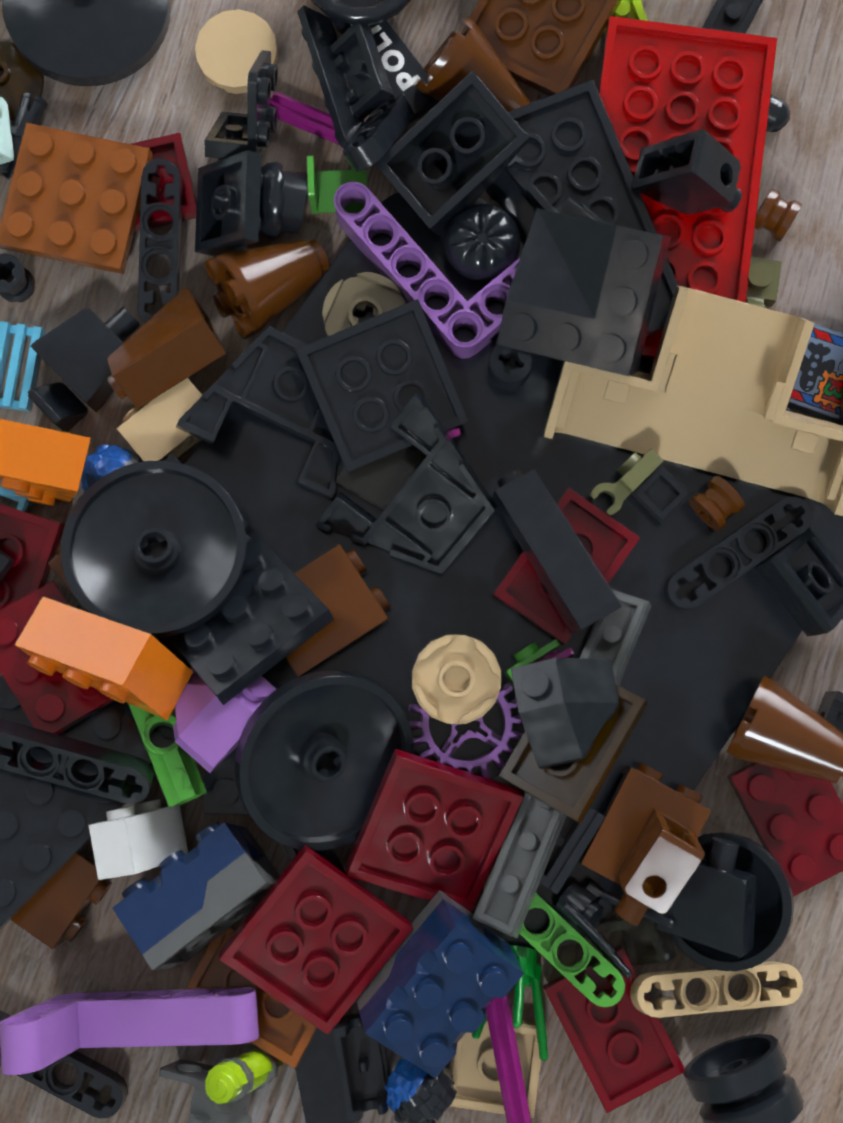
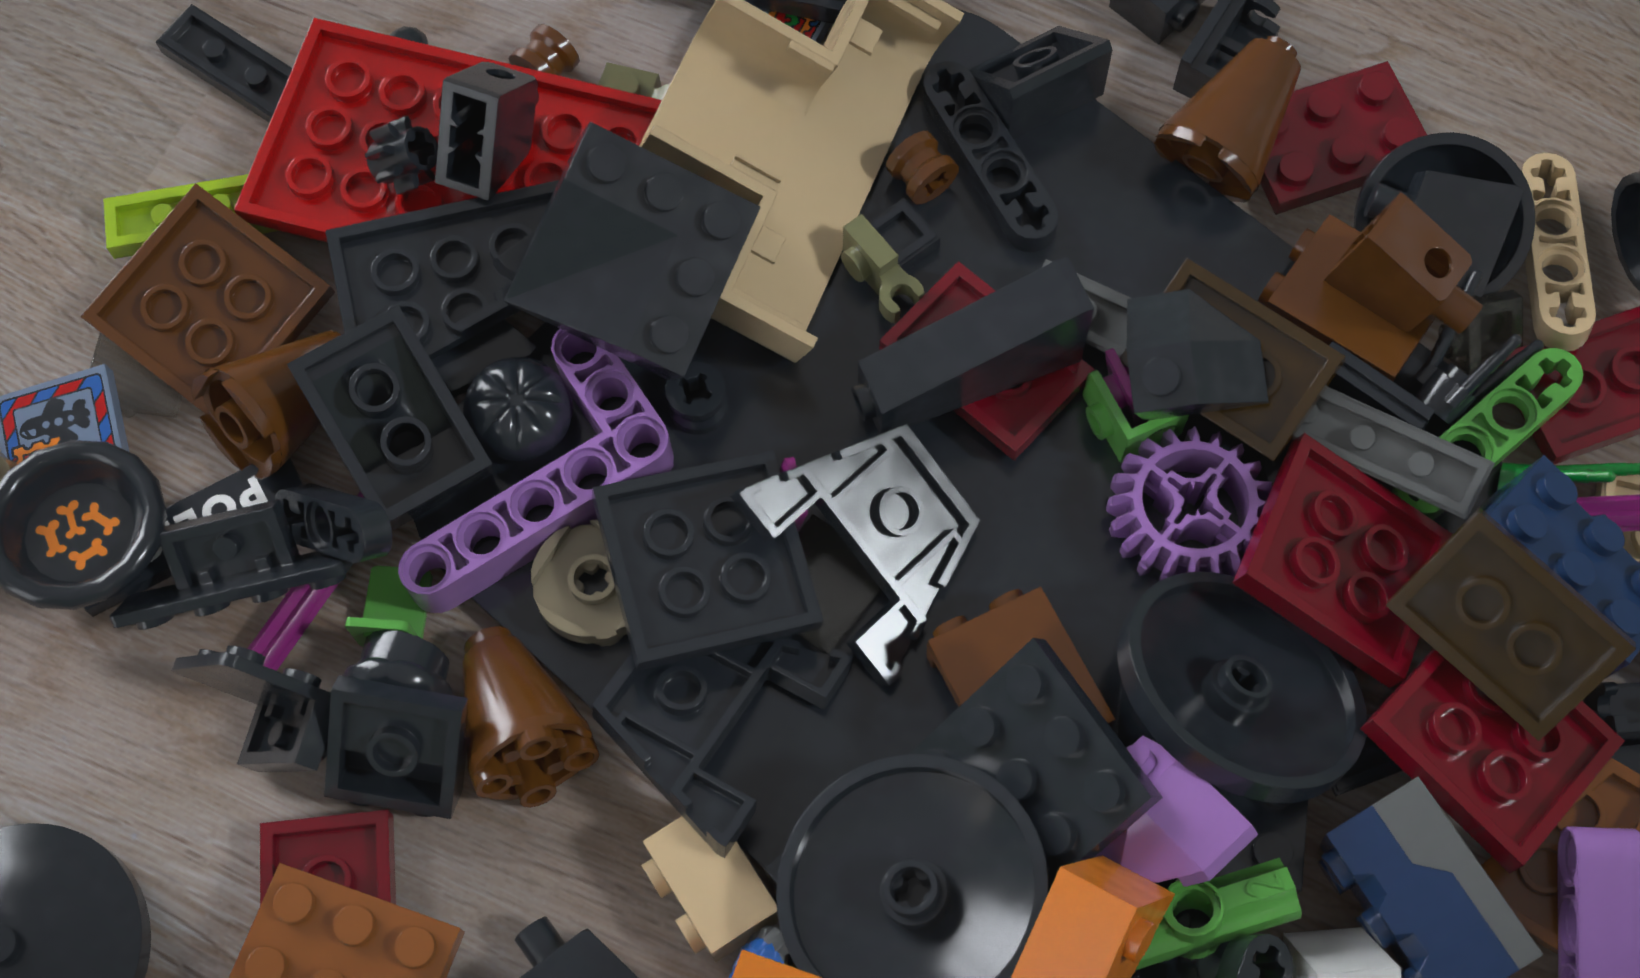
camera: 80 degrees left, 15 degrees down
(153, 244) = (428, 880): black beam -> none
(164, 351) = (600, 865): reddish brown slope -> none
(230, 46) = (148, 733): tan tile -> none
(383, 947) = (1511, 624): none -> dark brown plate
(456, 679) = (1136, 502): tan tile -> none
(660, 109) = (402, 155): none -> black gear

